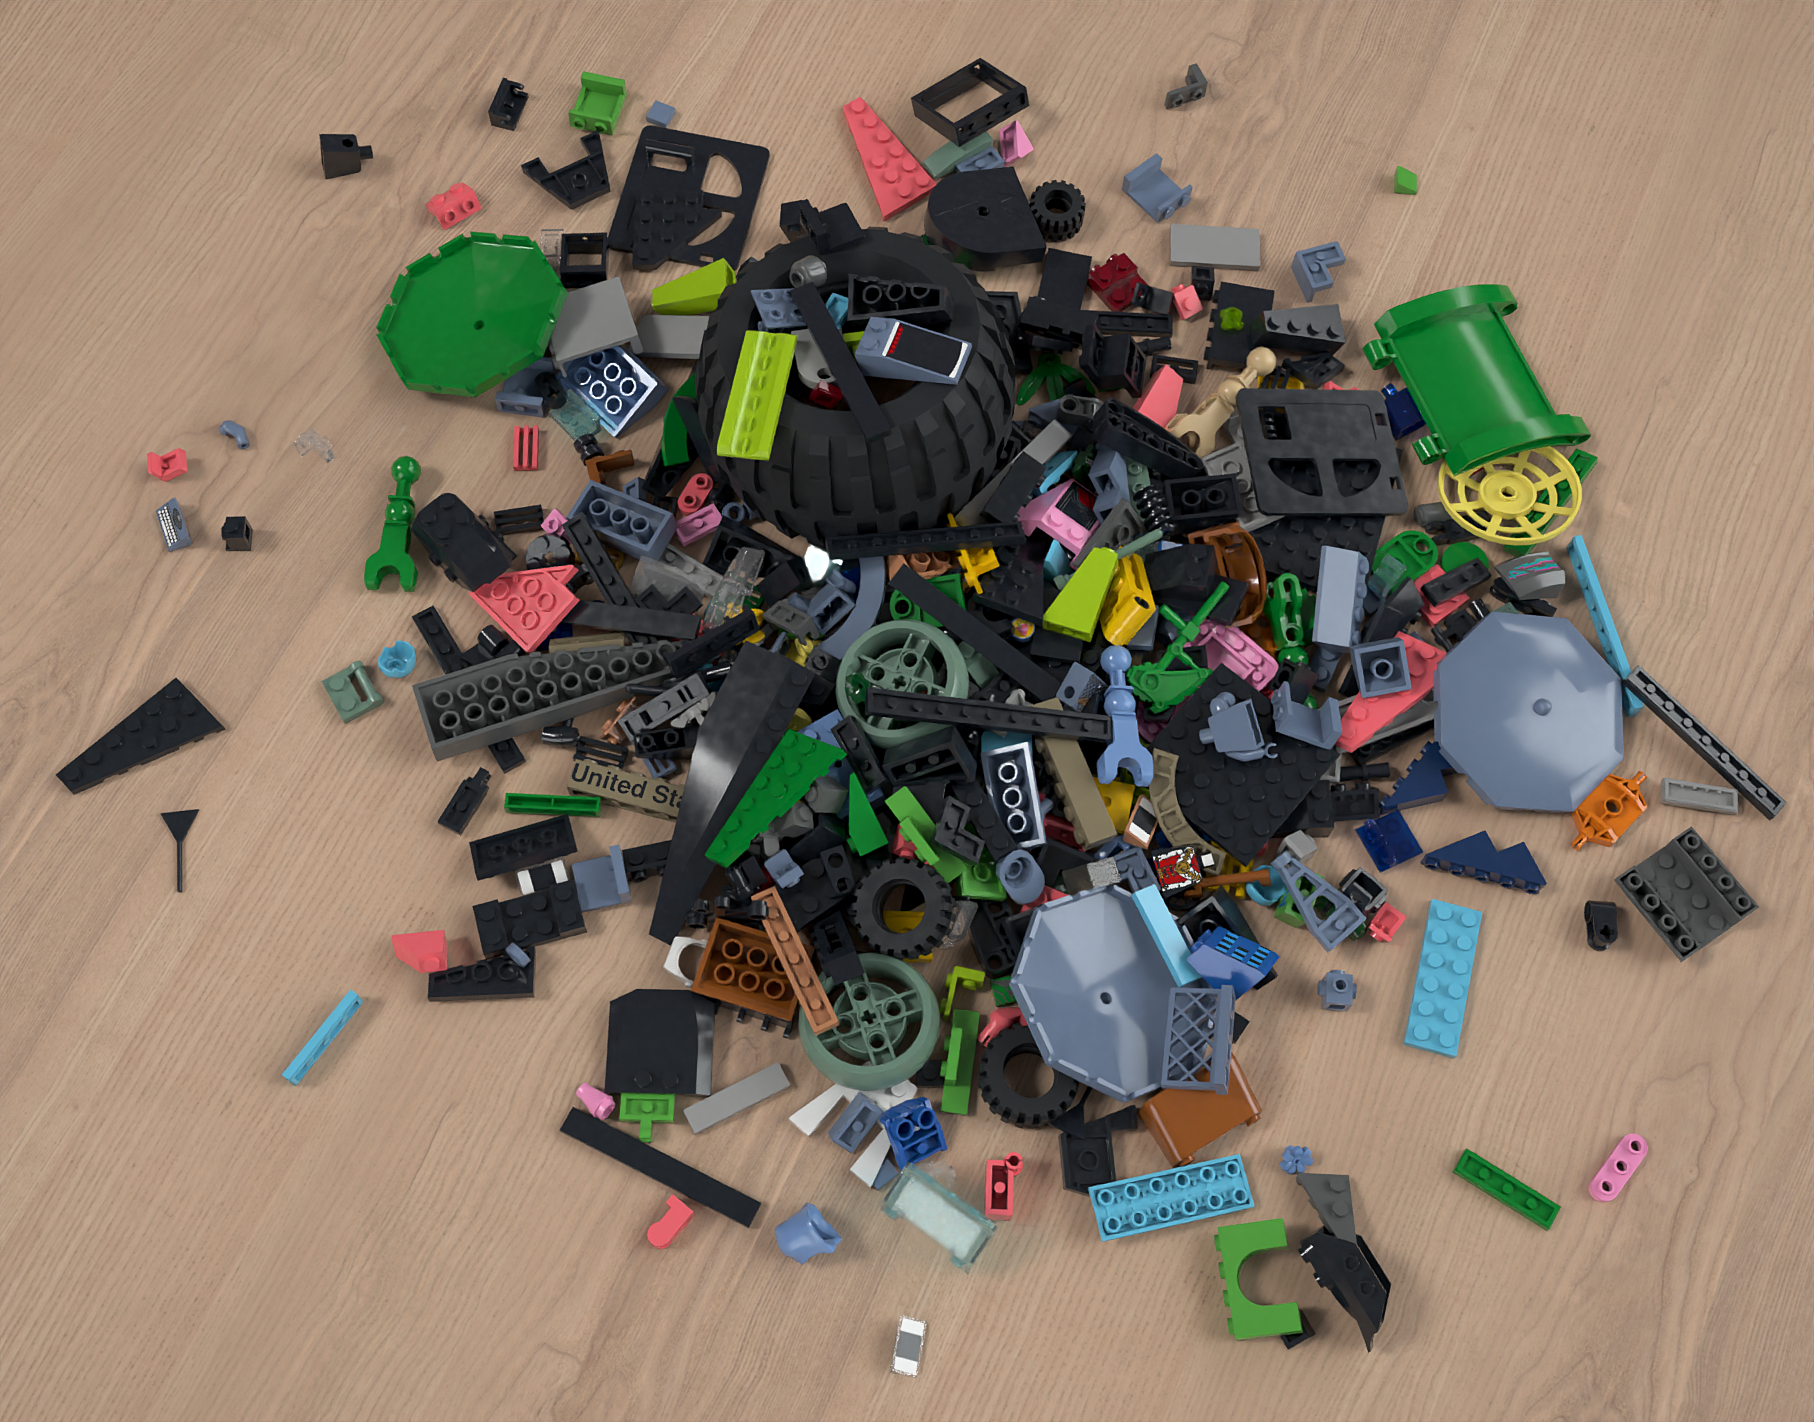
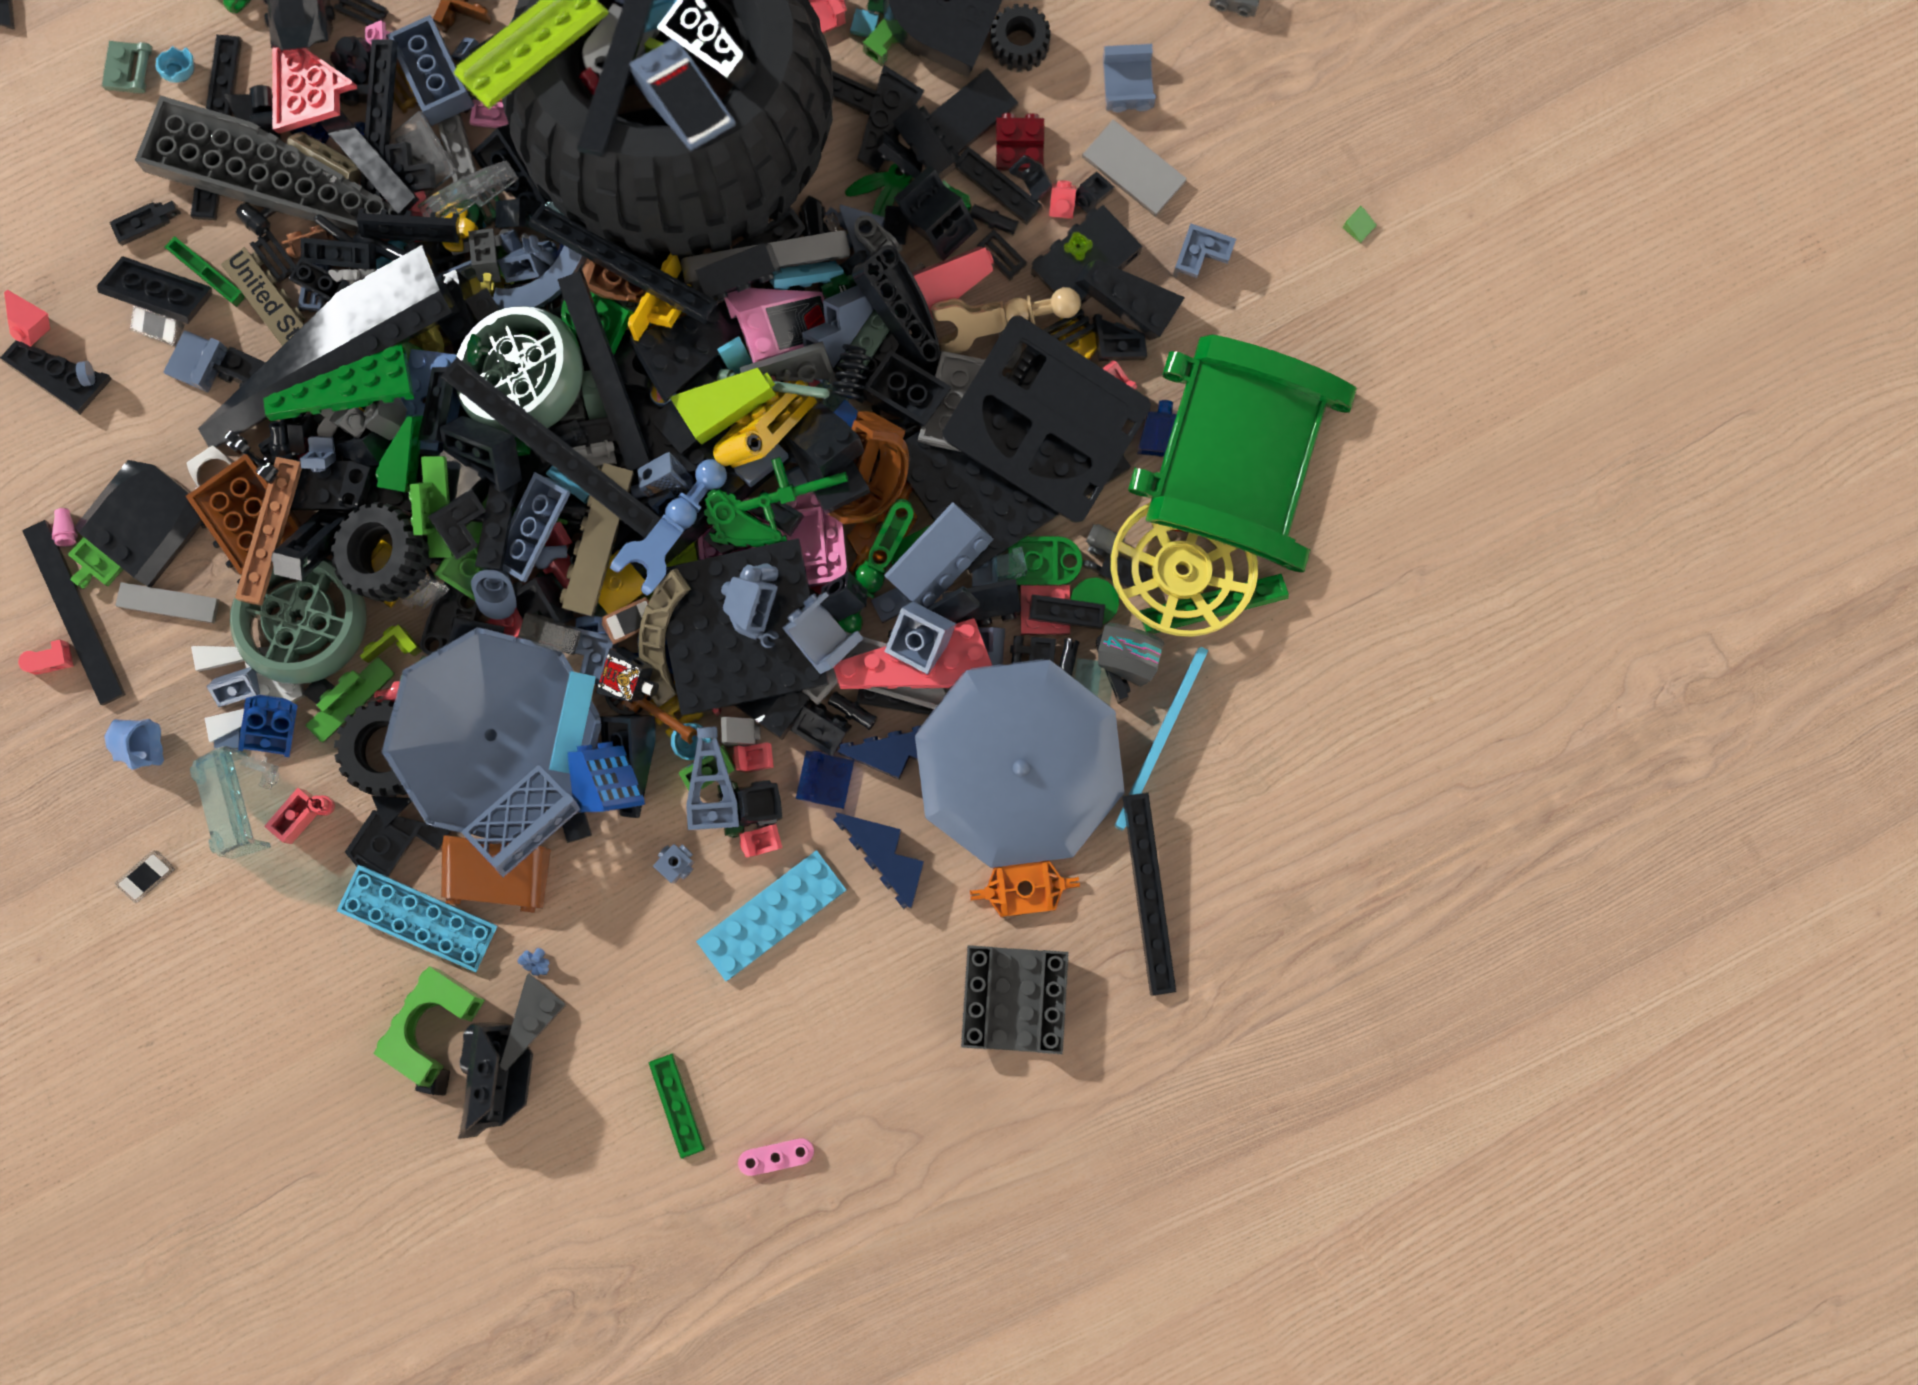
camera: 40 degrees right, 15 degrees up
(529, 919) = (119, 350): black piece -> none
(1324, 861) = (753, 757): none -> coral bracket
(1600, 924) = (934, 966): black piece -> none
(1699, 796) = (1108, 933): light grey plate -> none

